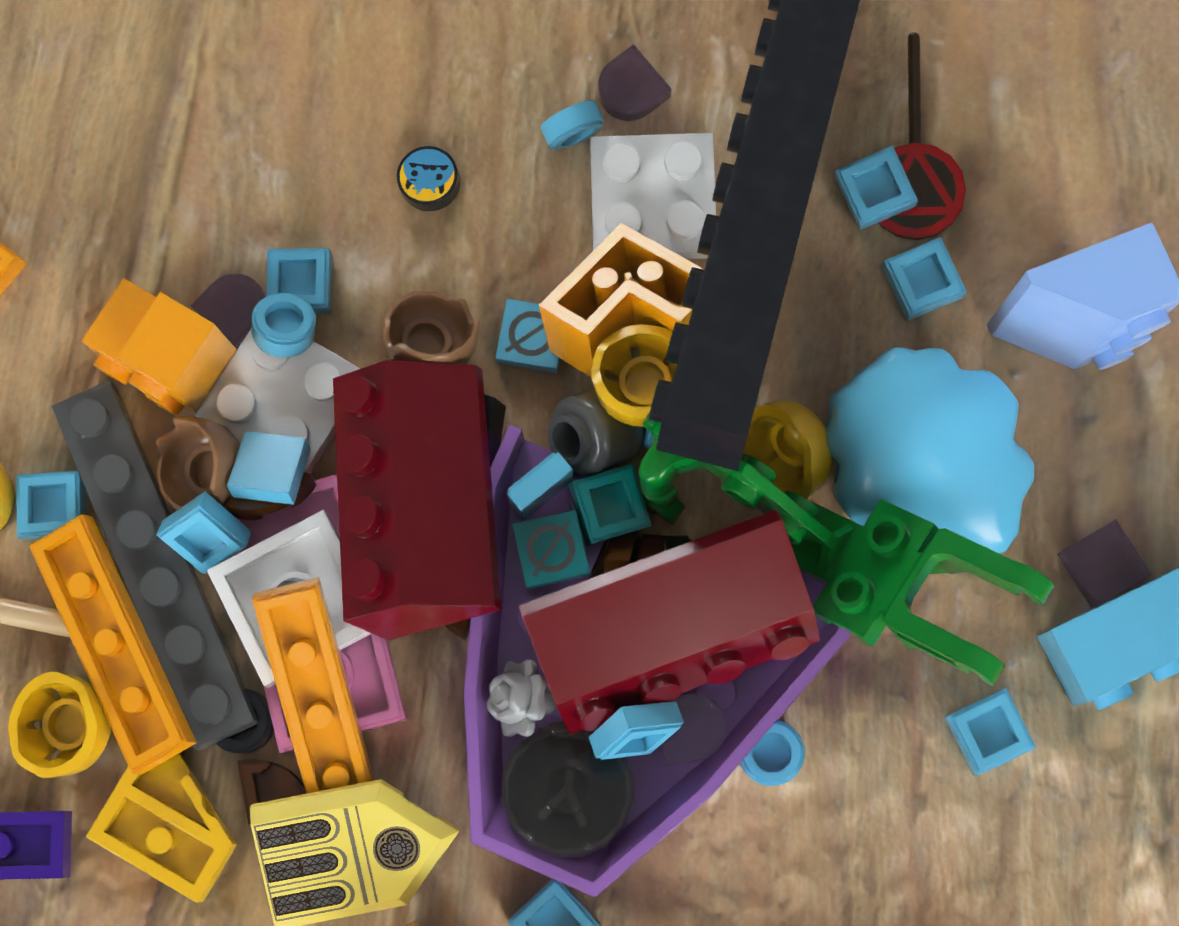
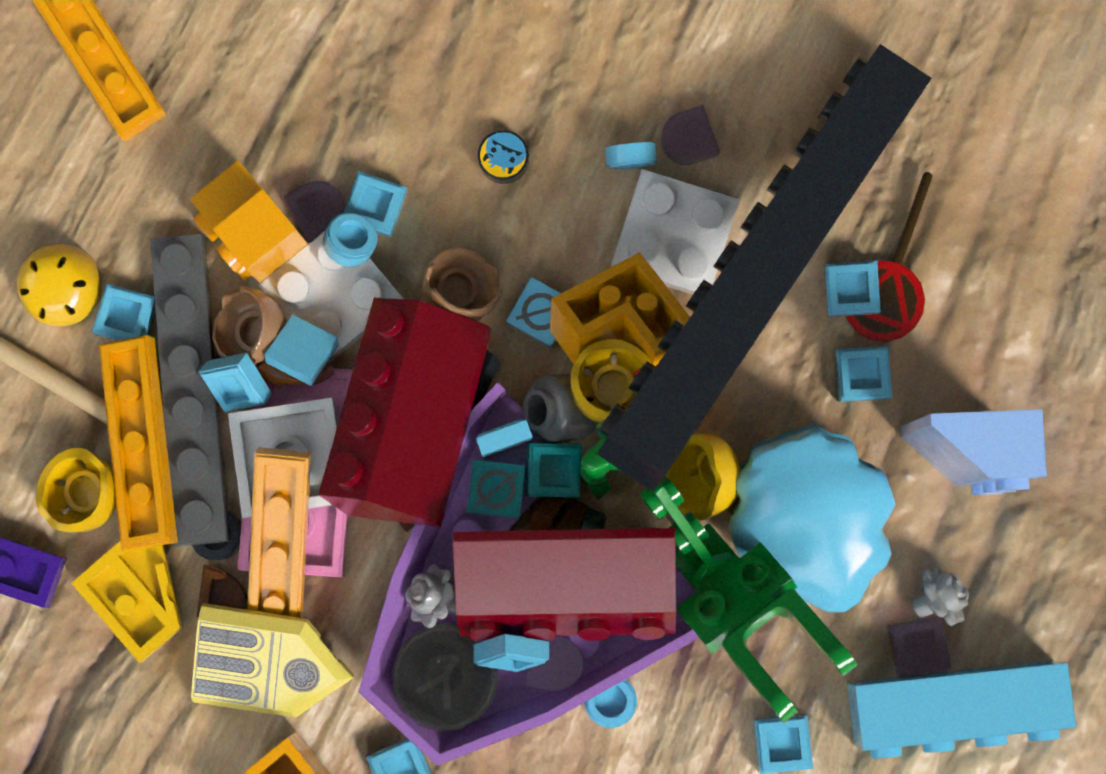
camera: 15 degrees right, 5 degrees up
(1109, 495) = (942, 596): none -> light grey plant

